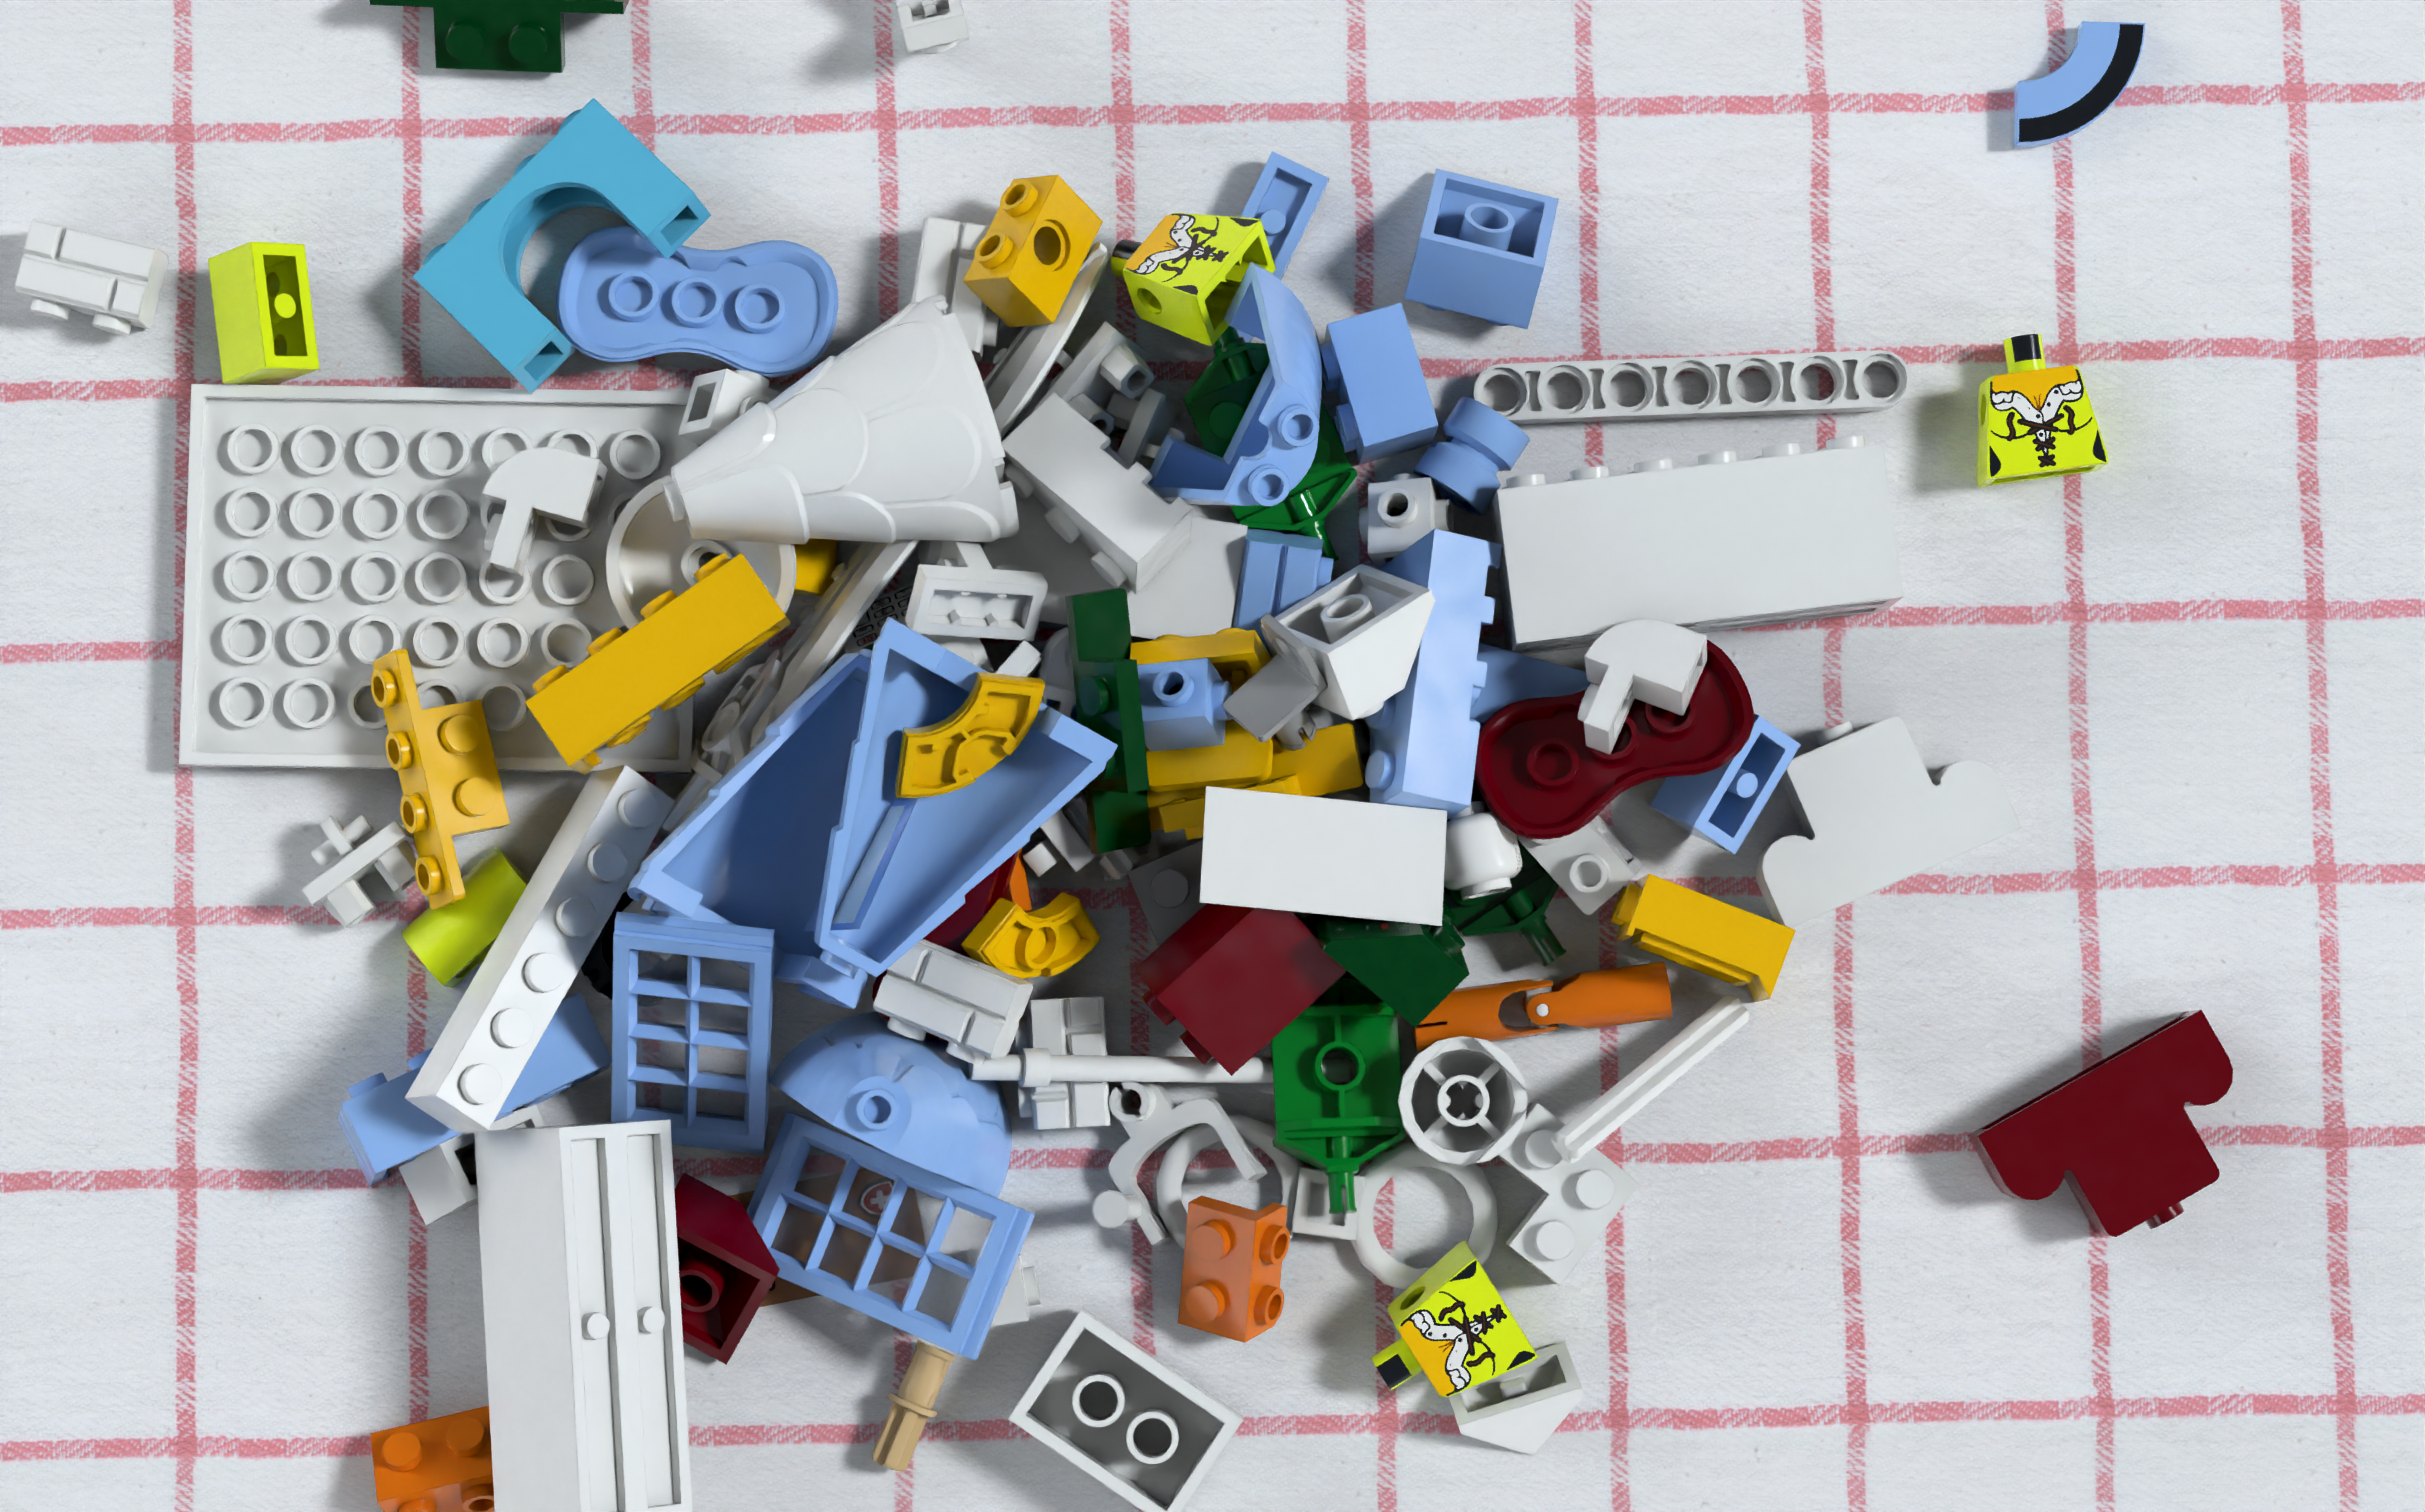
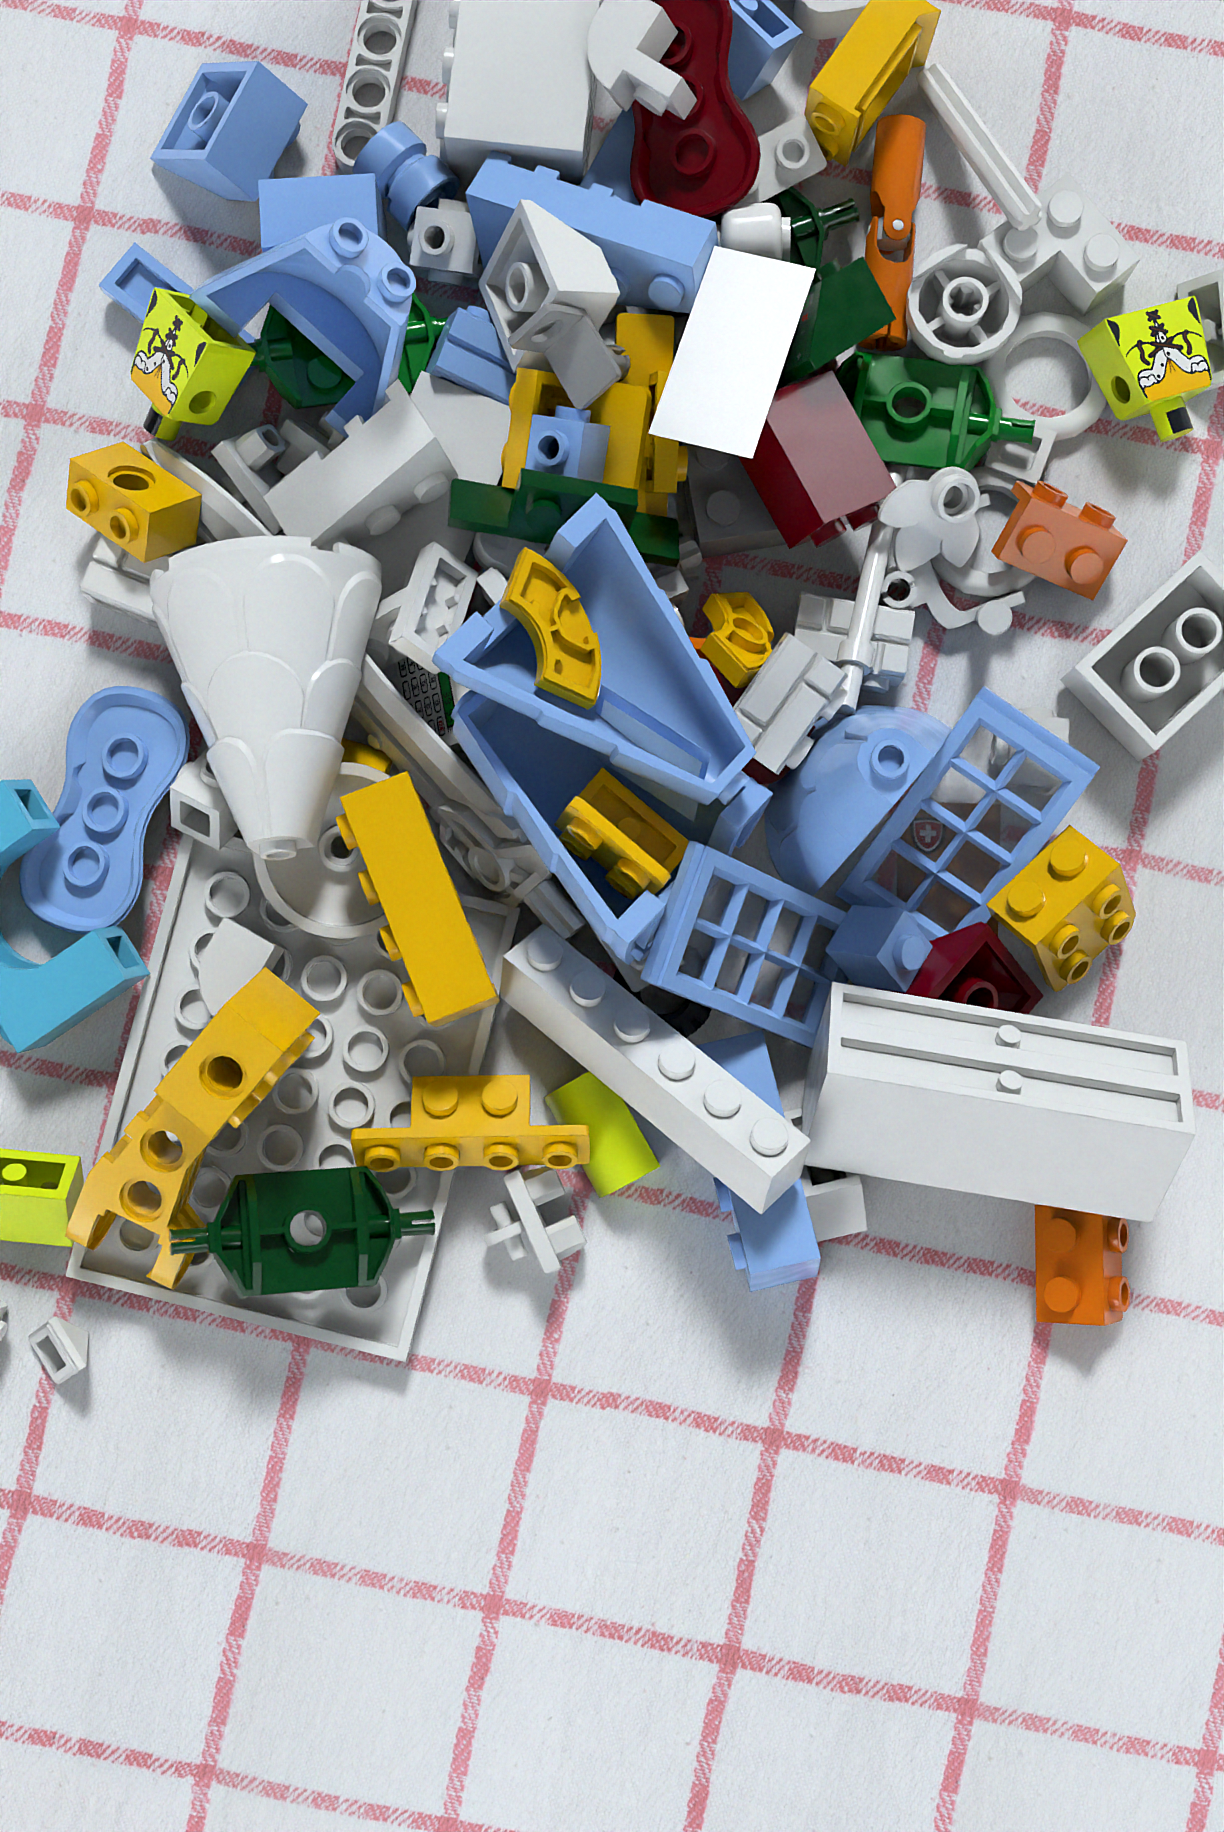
camera: 75 degrees left, 0 degrees up
(115, 397) = (61, 1348): none -> white slope
(274, 572) = (255, 1241): none -> dark green plate
(408, 493) = (211, 1085): none -> yellow brick
(732, 1169) = (879, 947): none -> light blue brick
(774, 862) = (621, 836): none -> yellow bracket
(819, 1362) = (1066, 907): none -> yellow bracket
(912, 1406) = (1116, 841): tan axle -> none
(1206, 1117) = (928, 525): none -> white plate

